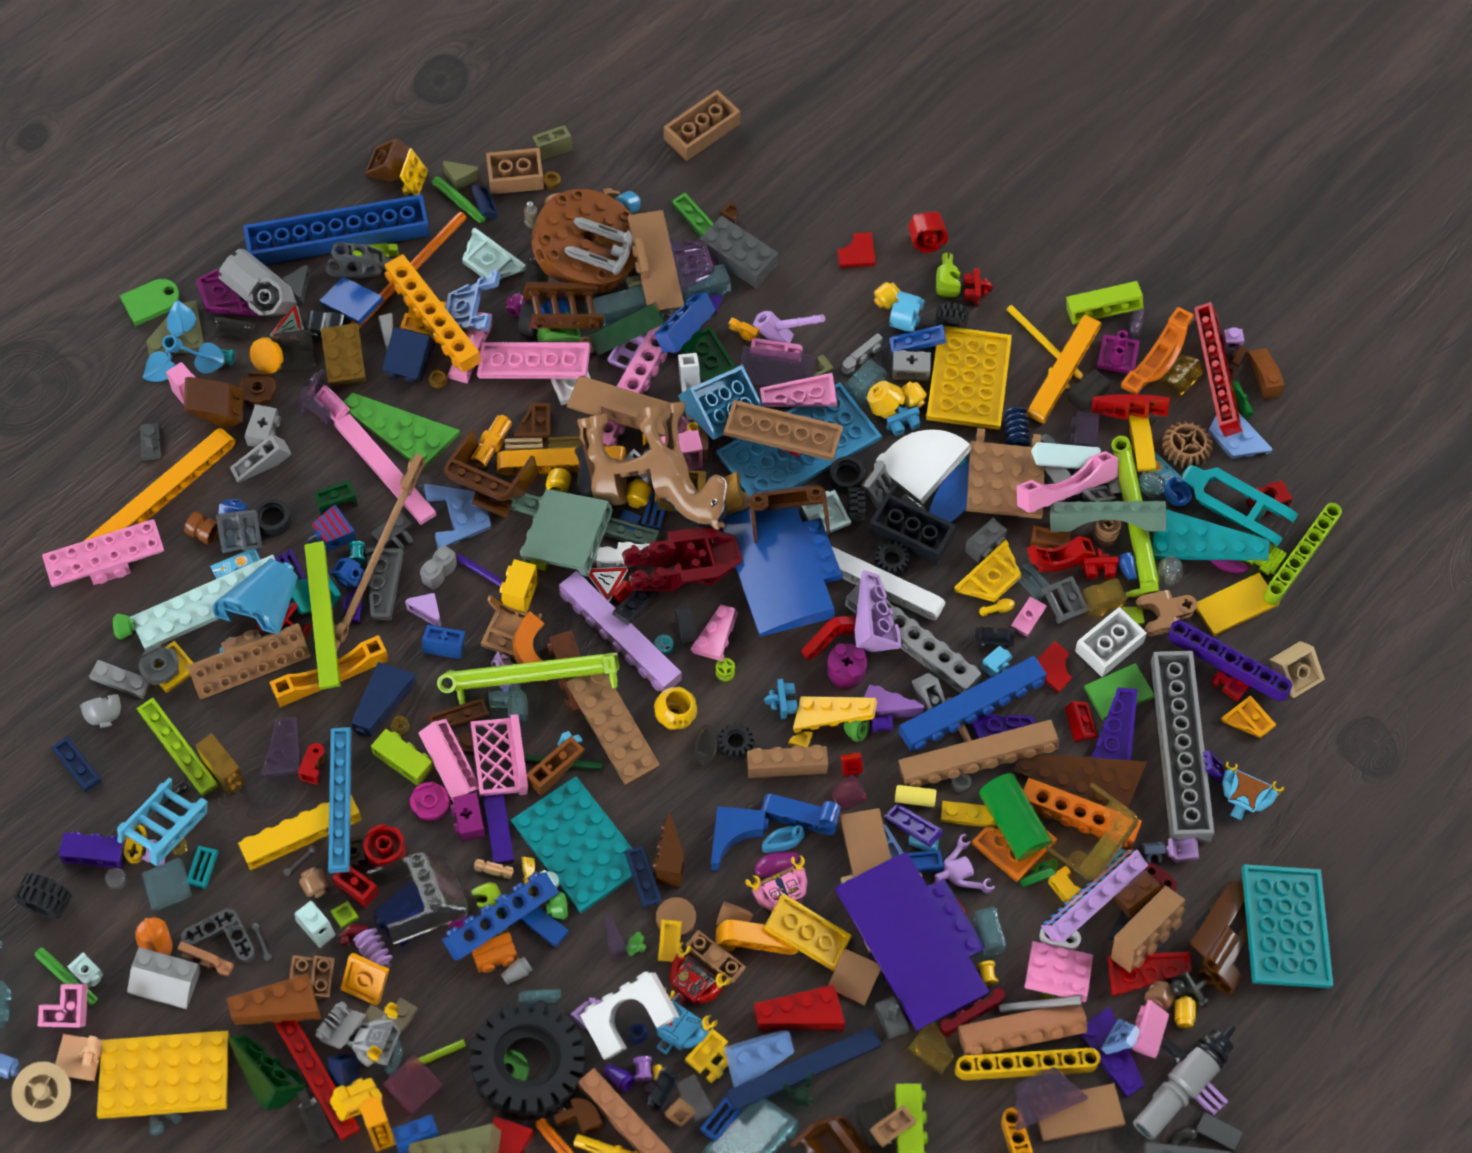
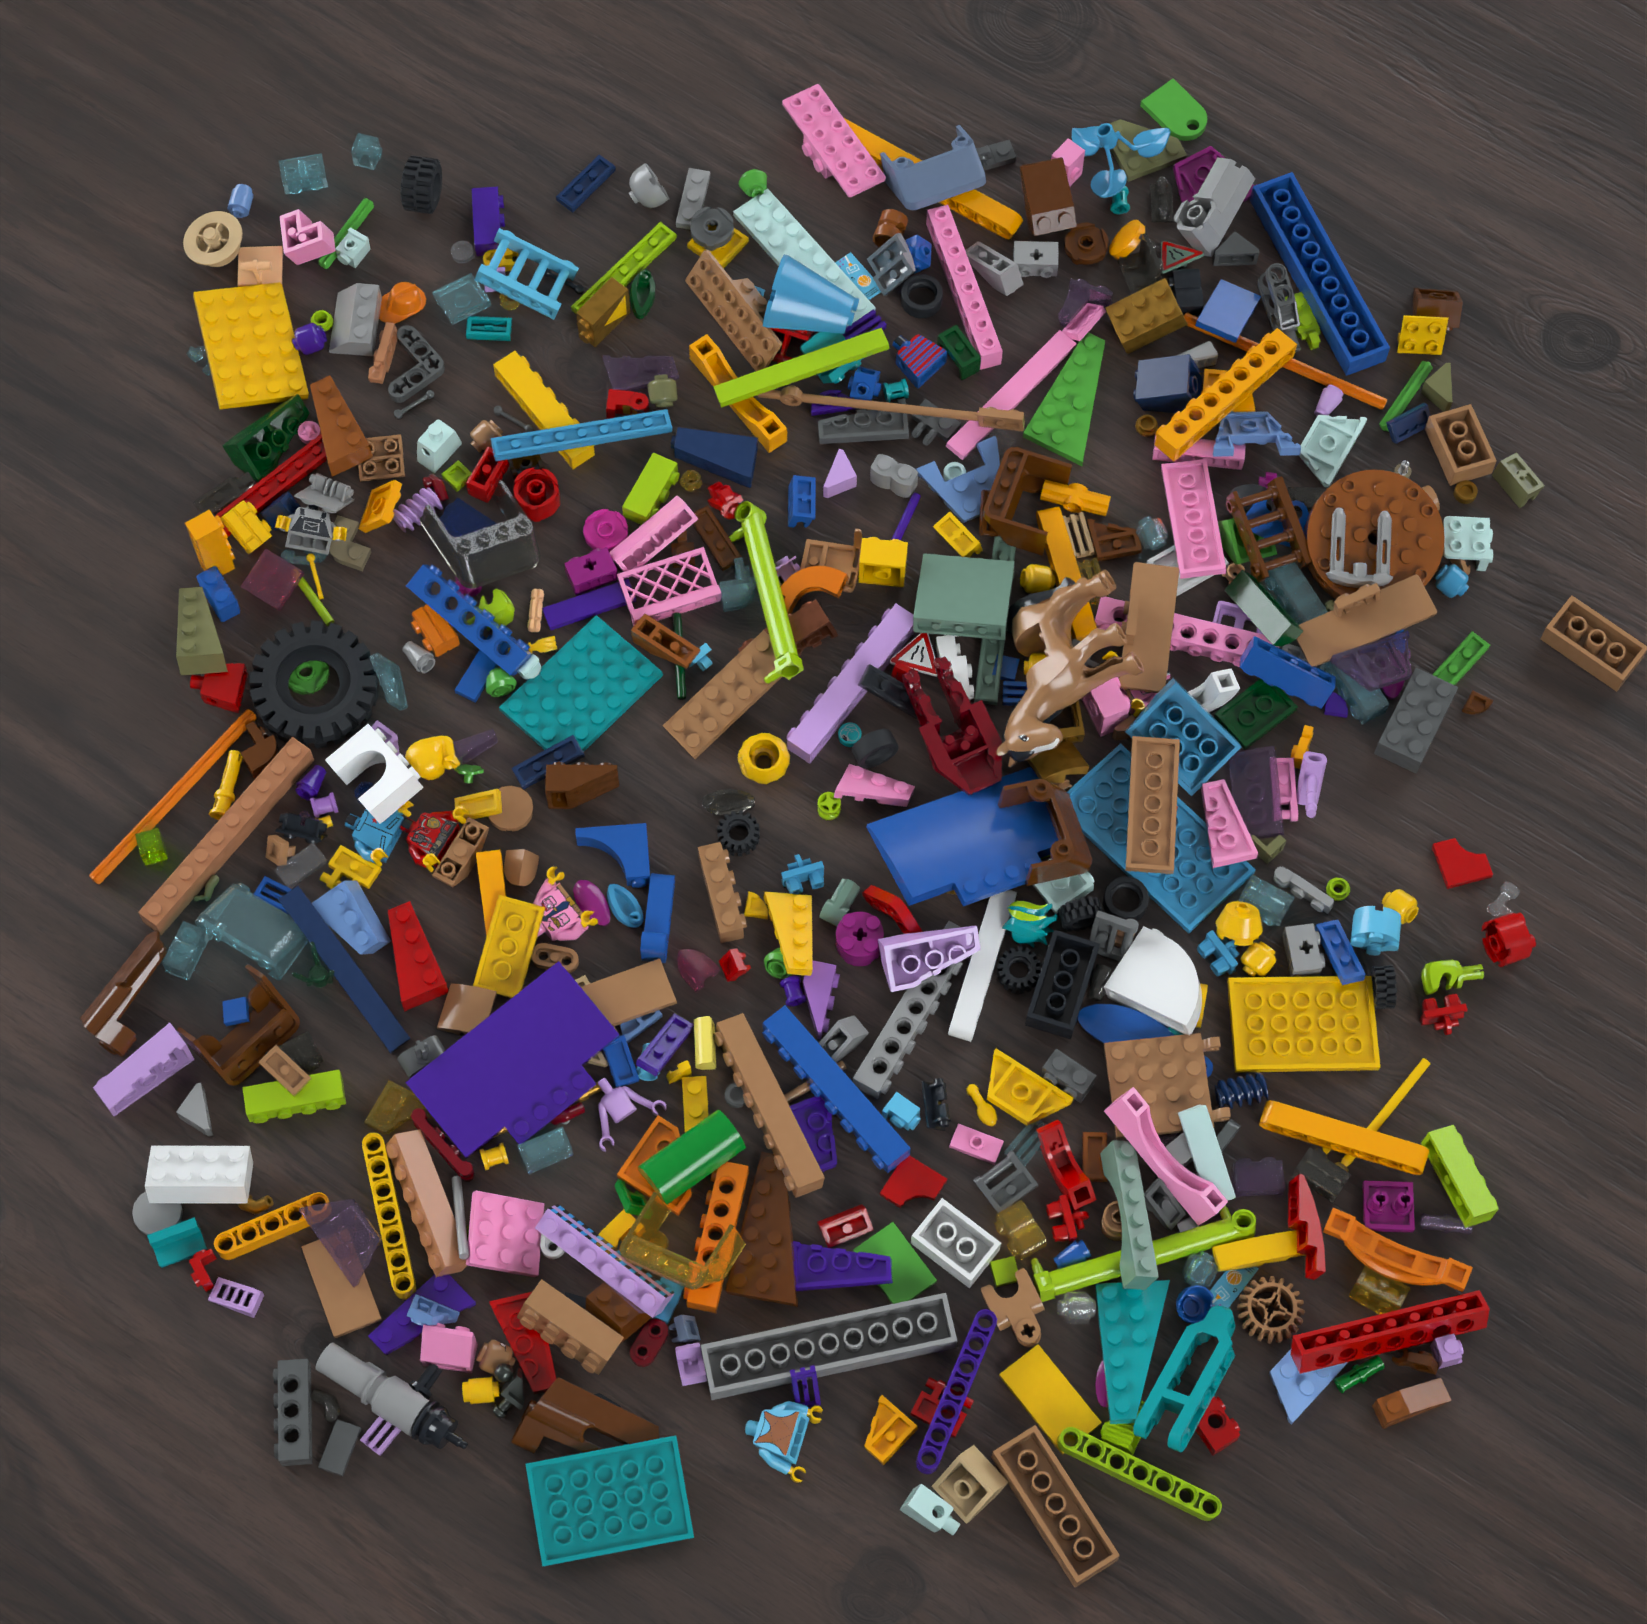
camera: 80 degrees right, 5 degrees up
(149, 1006) = (322, 315): none -> lime plate
(171, 1021) = (309, 338): none -> dark purple head
(173, 479) = (935, 177): none -> sand blue windscreen
(198, 731) = (642, 293): none -> dark green arm
(267, 1036) = (308, 431): none -> bright pink tile
(269, 483) = (964, 286): none -> bright pink brick
(310, 730) = (662, 391): none -> olive head
(399, 1047) = (310, 558): none -> yellow hinge
(428, 699) = (724, 499): none -> red hips
(443, 524) = (953, 470): none -> light aqua tile
(450, 250) = (1329, 400): none -> lavender cone
(506, 530) = (957, 536): none -> yellow hinge
(537, 392) = (1152, 533): none -> clear light blue head
(600, 180) = (1468, 540): none -> light aqua bracket
(619, 967) = (432, 756): none -> yellow piece
(816, 678) = (840, 903): none -> sand green piece
(819, 901) = (555, 954): none -> medium nougat plate
(857, 539) = (1029, 922): none -> teal hair
(863, 329) = (1342, 884): none -> lime plate
(887, 225) = (1508, 891): none -> clear piece
(936, 817) = (683, 1070): none -> yellow tile
(1319, 693) = (920, 1506): none -> light aqua torso
(1322, 612) = (1055, 1506): none -> medium nougat brick

